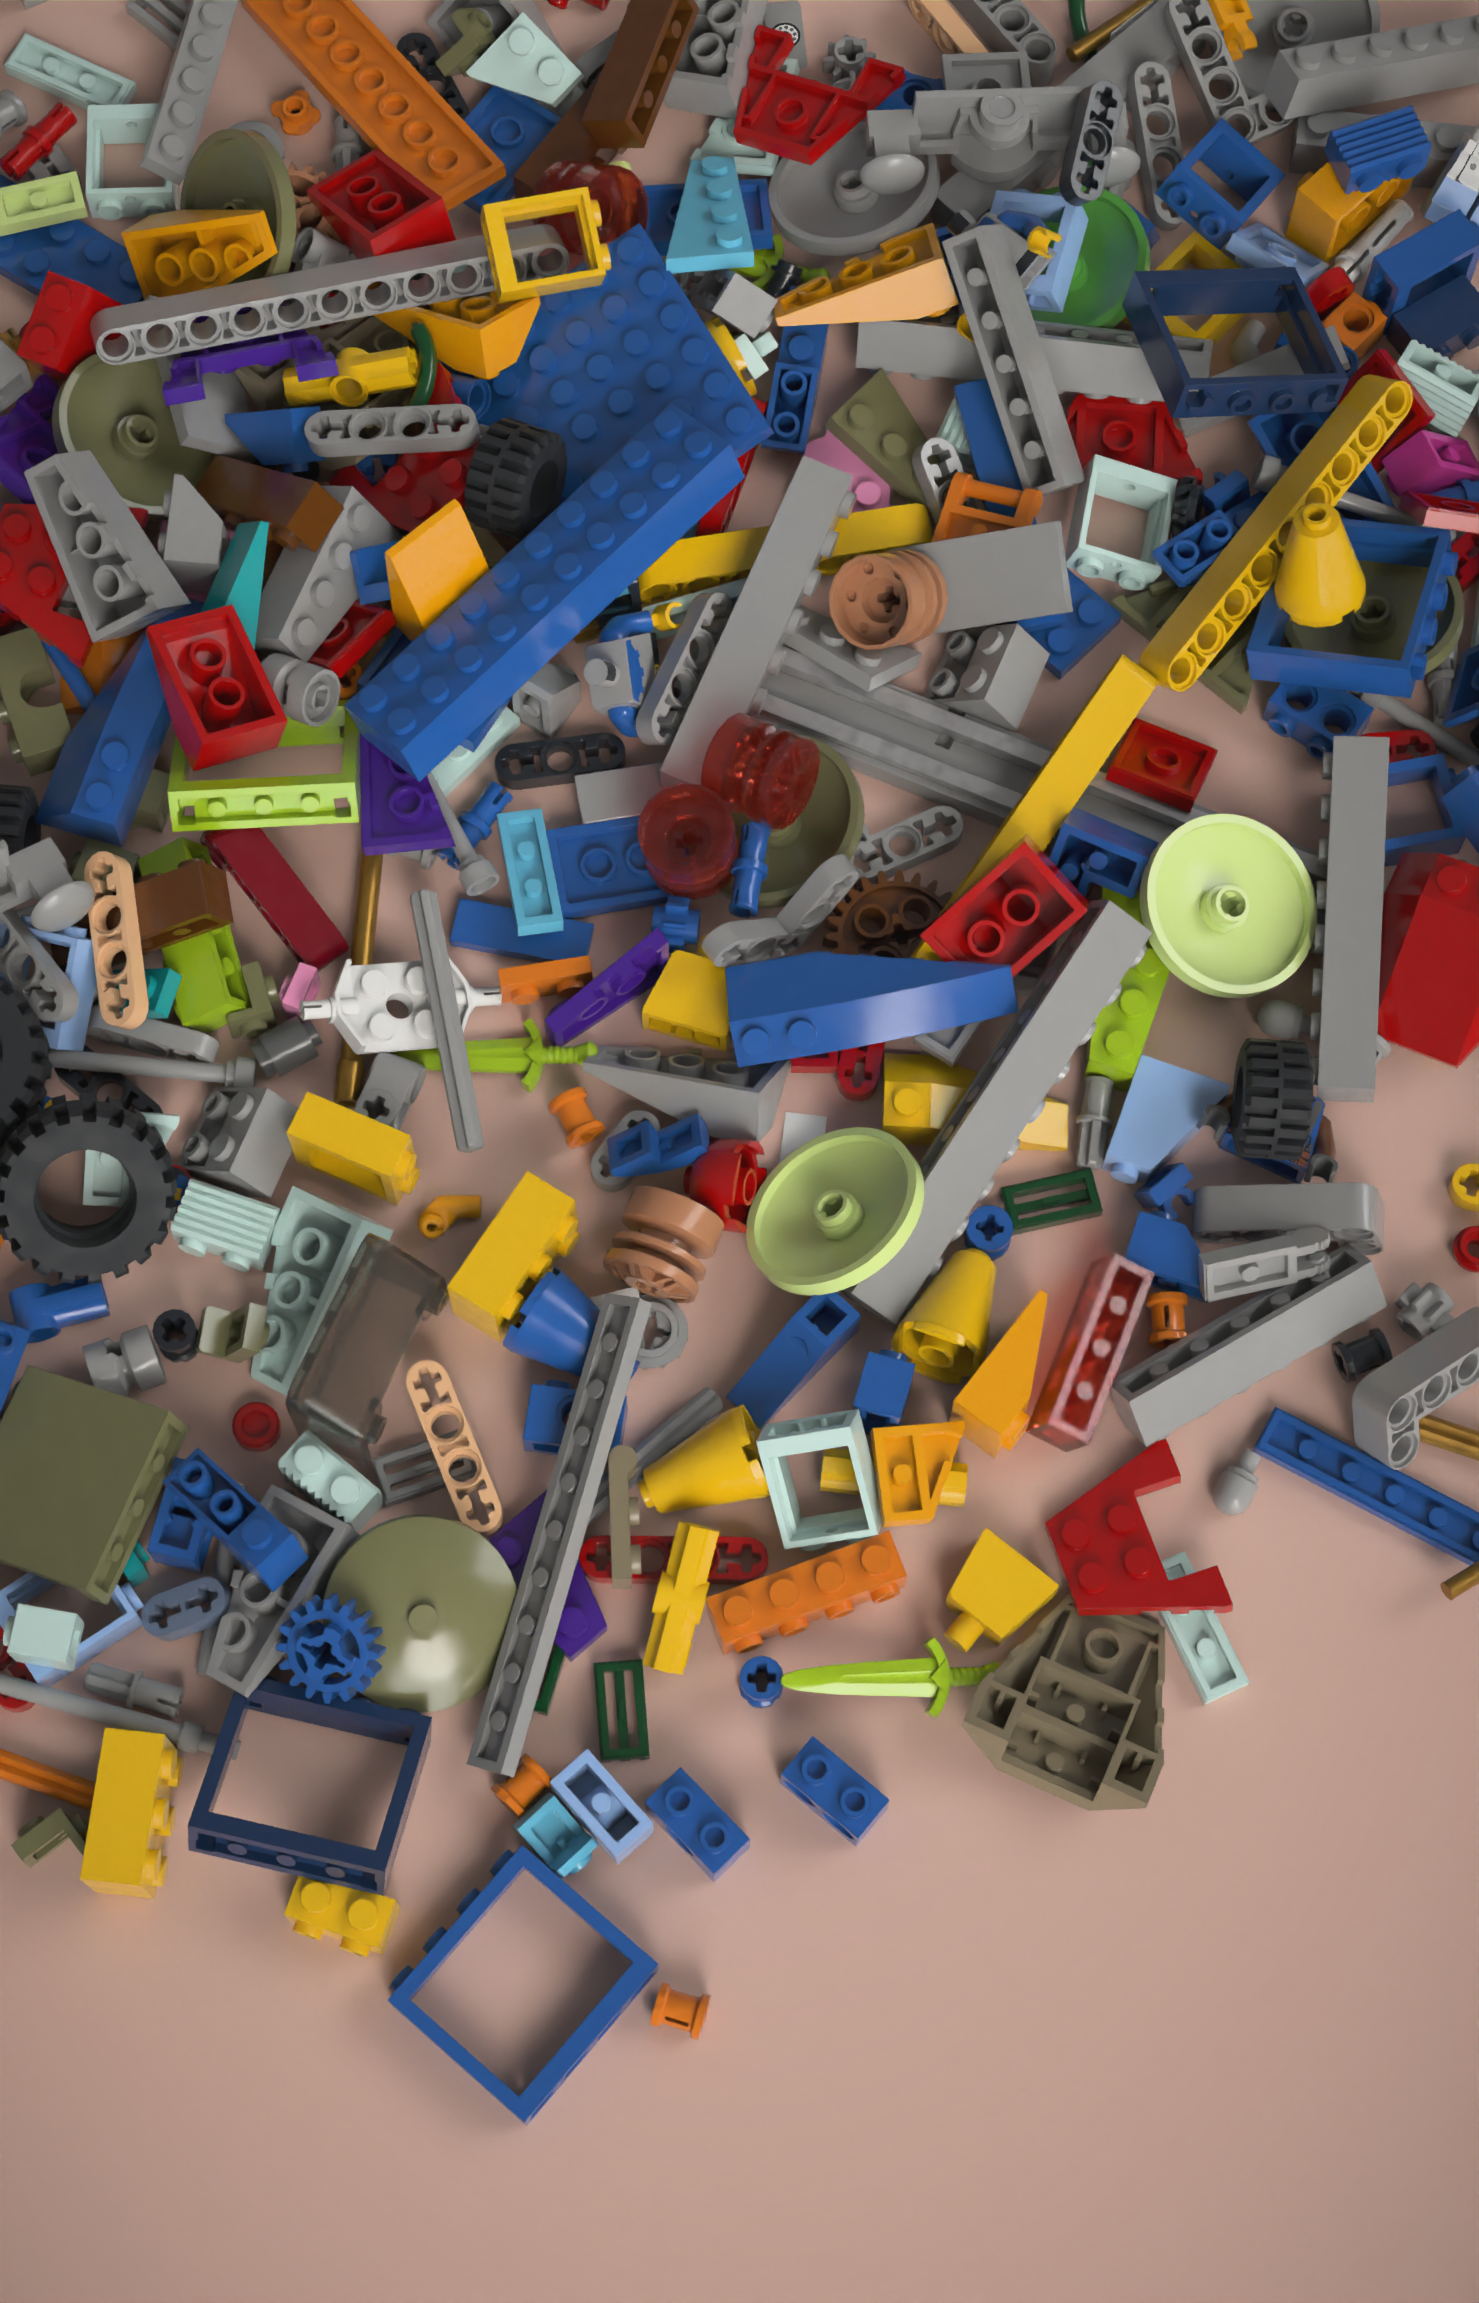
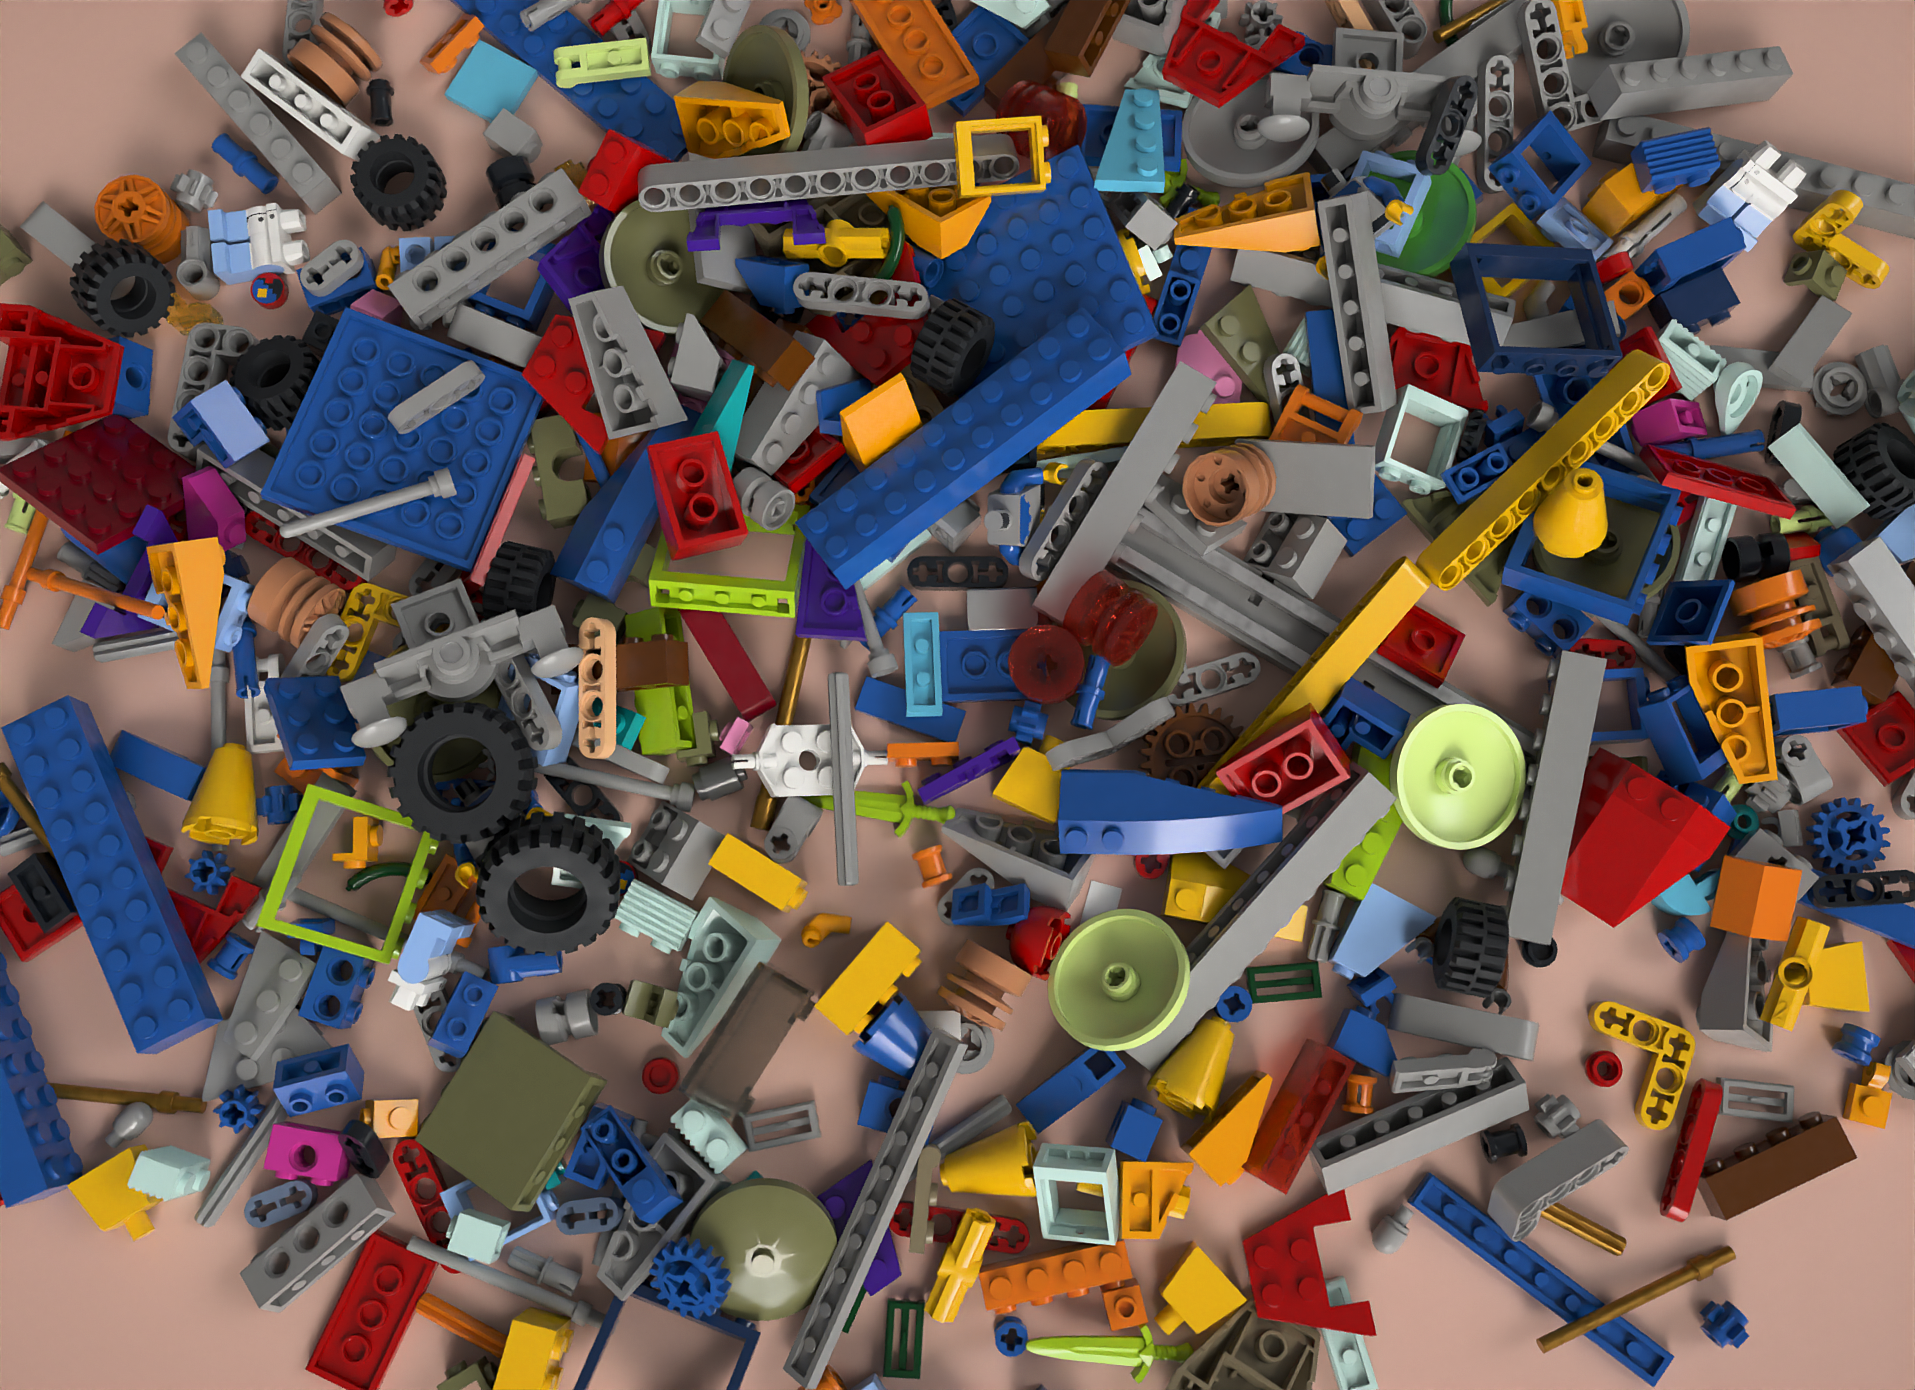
camera: 10 degrees right, 10 degrees up
(458, 1446) = (800, 1120): light nougat beam -> none
(901, 1619) = (1124, 1305): none -> orange brick
(1371, 1119) = (1537, 954): none -> black plate

